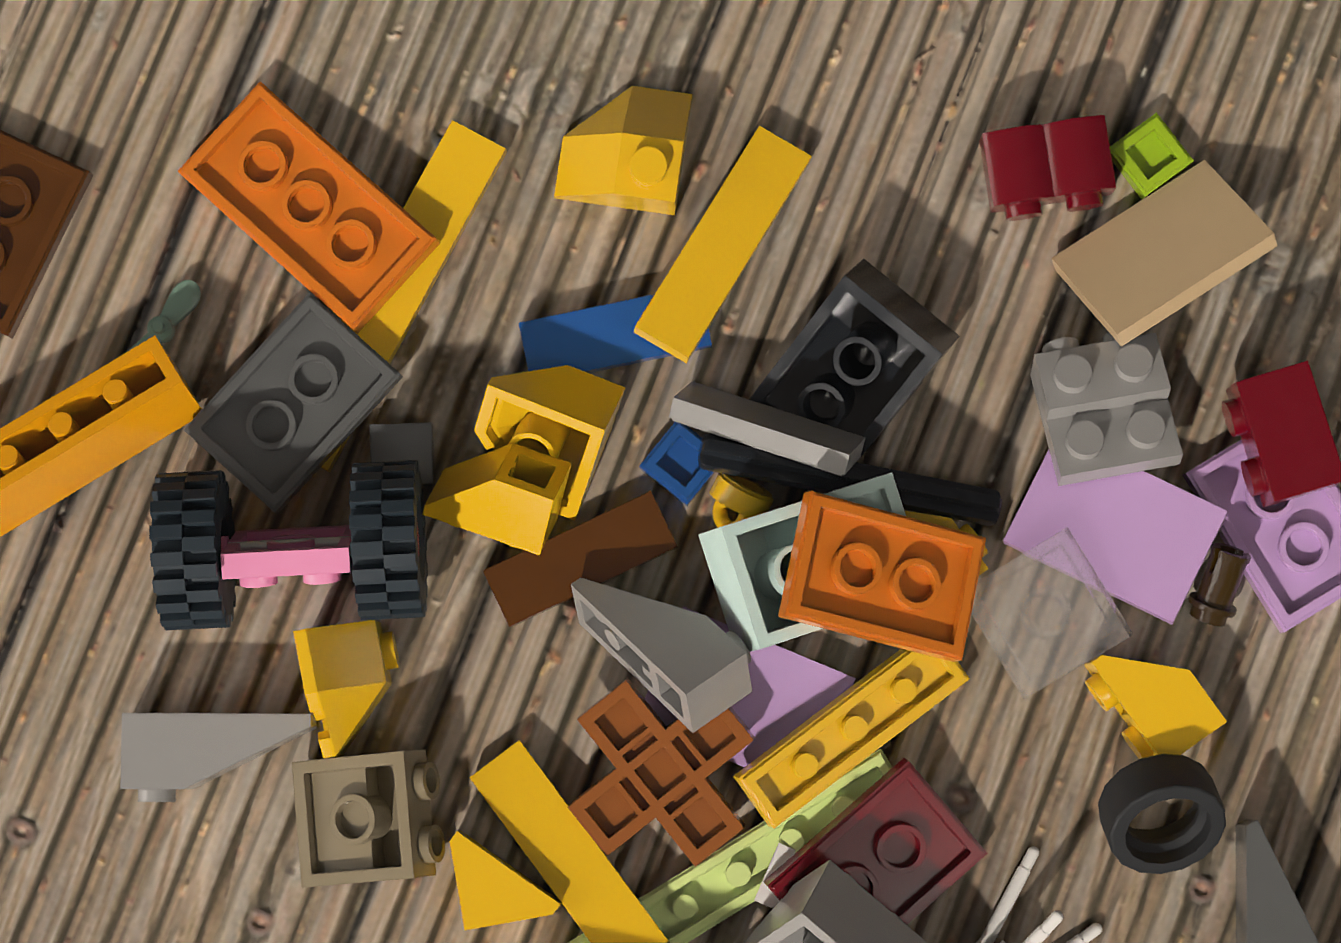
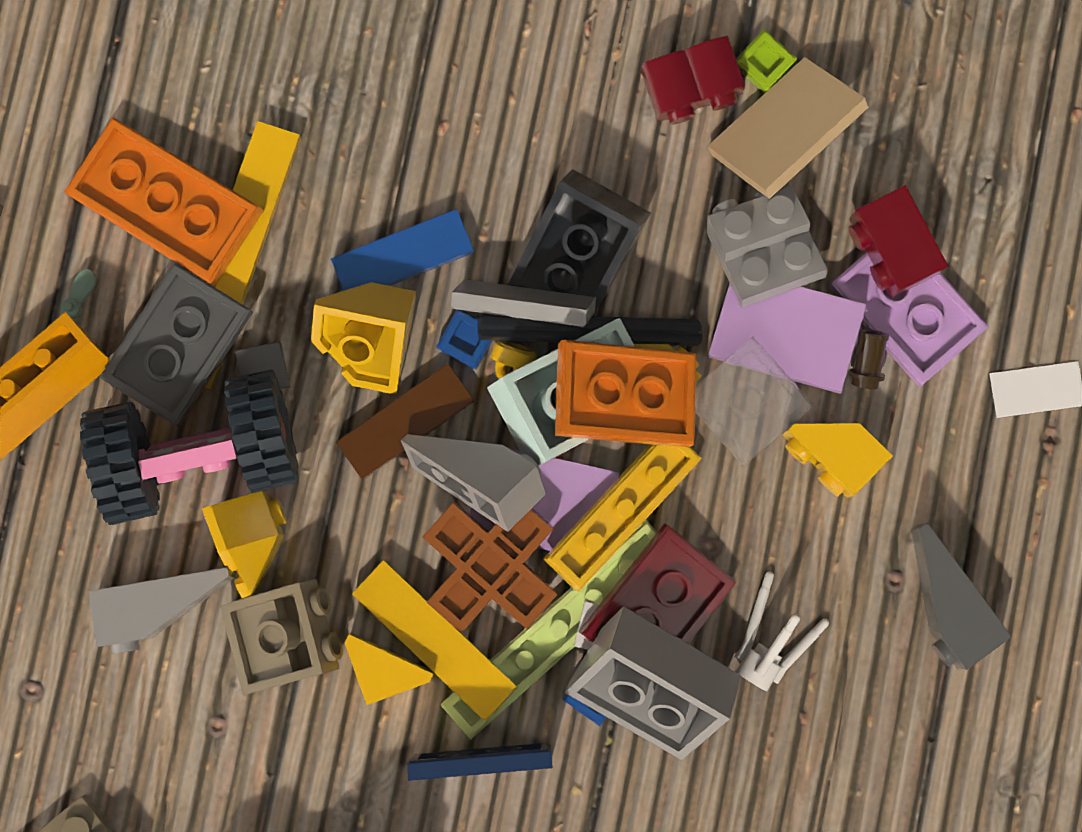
camera: 15 degrees left, 0 degrees up
(503, 496) = (341, 385): yellow slope -> none
(628, 152) = (389, 123): yellow slope -> none
(722, 244) = (468, 176): yellow tile -> none
(1169, 846) = (871, 551): black tyre -> none

